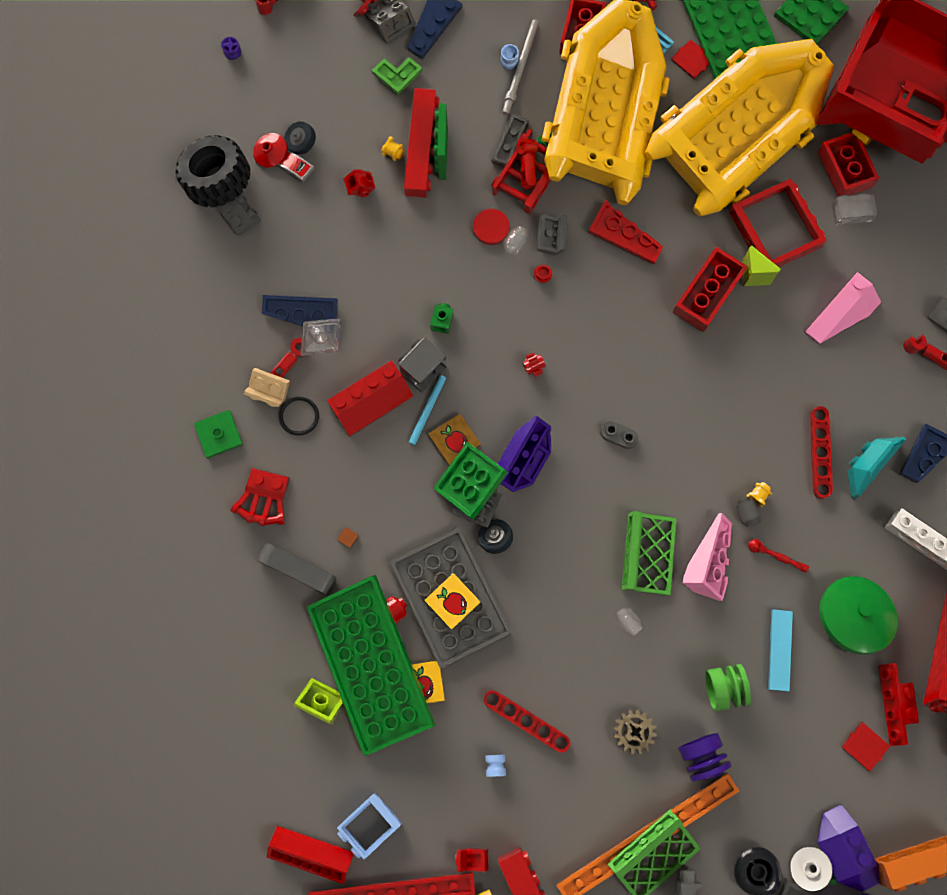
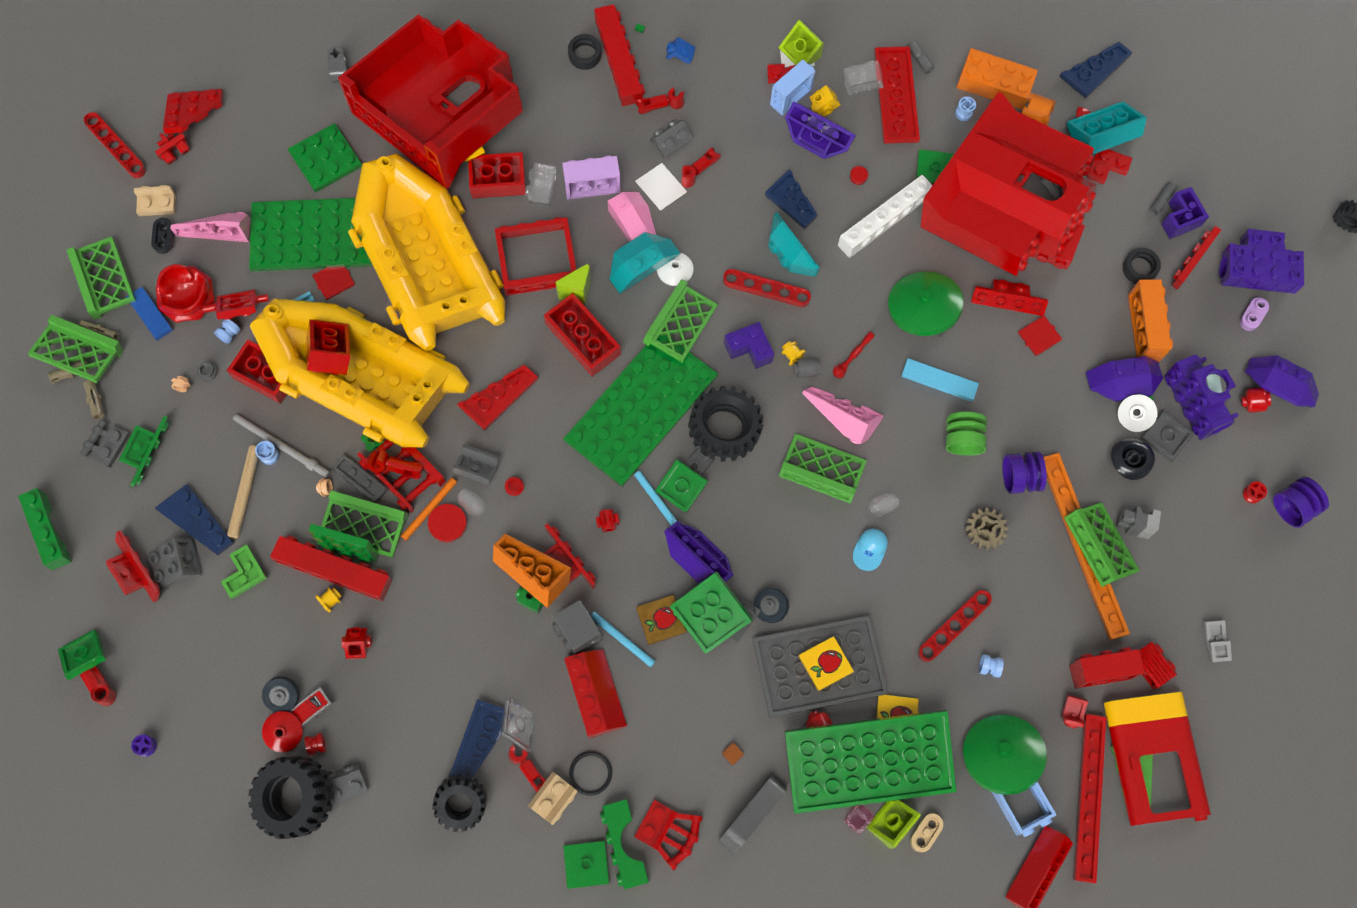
camera: 80 degrees left, 5 degrees down
(220, 472) = (631, 871): none -> green arch
(230, 306) = (454, 818): none -> black tyre
(265, 179) = (315, 744): none -> red wheel
(317, 669) = (859, 818): none -> clear pink slope
(319, 736) = (926, 833): none -> tan plate
(410, 796) = (1004, 754): none -> green dish
(465, 51) = (243, 493): none -> tan axle
(465, 310) = (532, 569): none -> orange wedge
(483, 335) = (562, 553): none -> red bracket
(484, 159) = (373, 510): none -> bright green fence
(493, 114) = (324, 487): none -> light nougat plate
(494, 205) = (428, 509): none -> orange bar
(570, 403) = (655, 497): none -> medium azure bar
(579, 620) = (870, 549): none -> medium azure cap
(588, 423) = (681, 486): none -> green plate
(616, 65) = (328, 347): none -> red brick
(657, 366) = (639, 410): none -> green plate
(683, 433) = (730, 402): none -> black tyre
(755, 360) = (665, 316): none -> bright green fence
(757, 448) = (750, 341): none -> dark purple brick
(807, 366) = (672, 276): none -> white dish
(808, 322) = (640, 259): none -> teal wedge
(877, 250) = (591, 177): none -> lavender brick
(895, 322) = (661, 186): none -> white sticker

